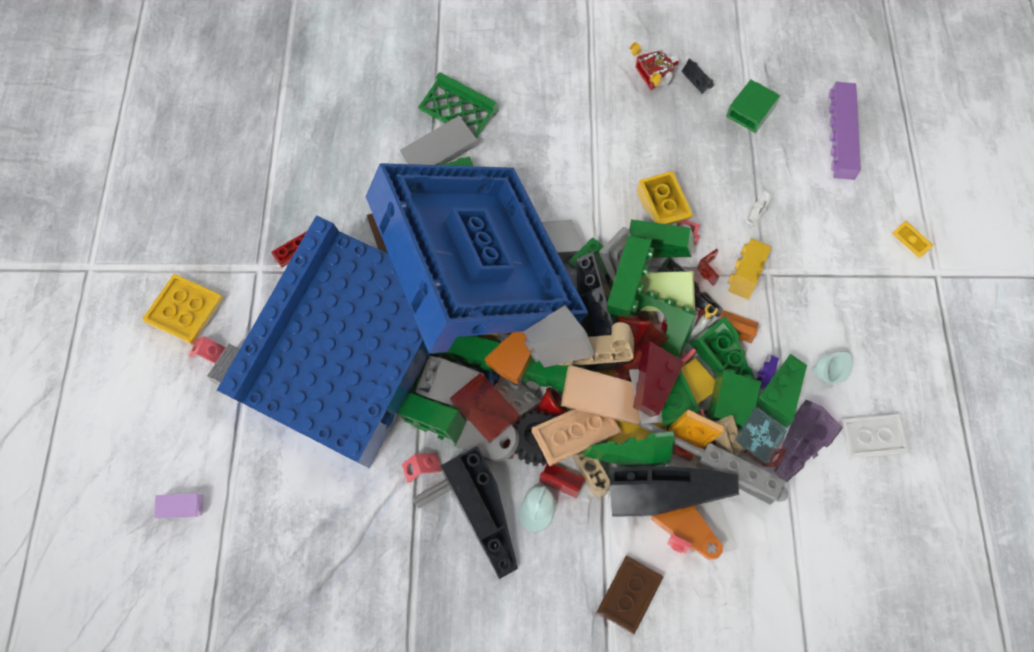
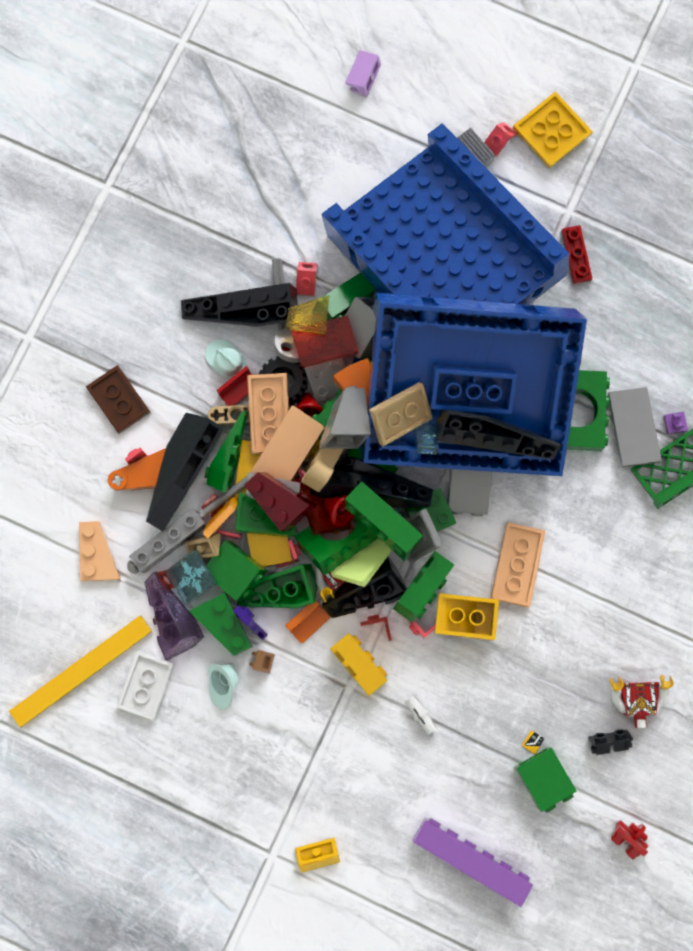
camera: 115 degrees right, 15 degrees up
(420, 121) = (675, 423): none -> medium lavender tile
(467, 428) = (309, 316): none -> clear yellow wing
(512, 219) = (492, 434): none -> black wedge
(532, 291) = (401, 414): none -> tan tile
(536, 267) = (426, 439): none -> clear light blue plate
(597, 188) = (518, 564): none -> light nougat tile
(729, 127) = (533, 742): none -> sticker
(757, 38) = (634, 836): none -> red hips
(788, 540) = (95, 555): none -> light nougat wing
(794, 344) = (263, 661): none -> medium nougat tile
(900, 500) = (80, 671): none -> yellow tile

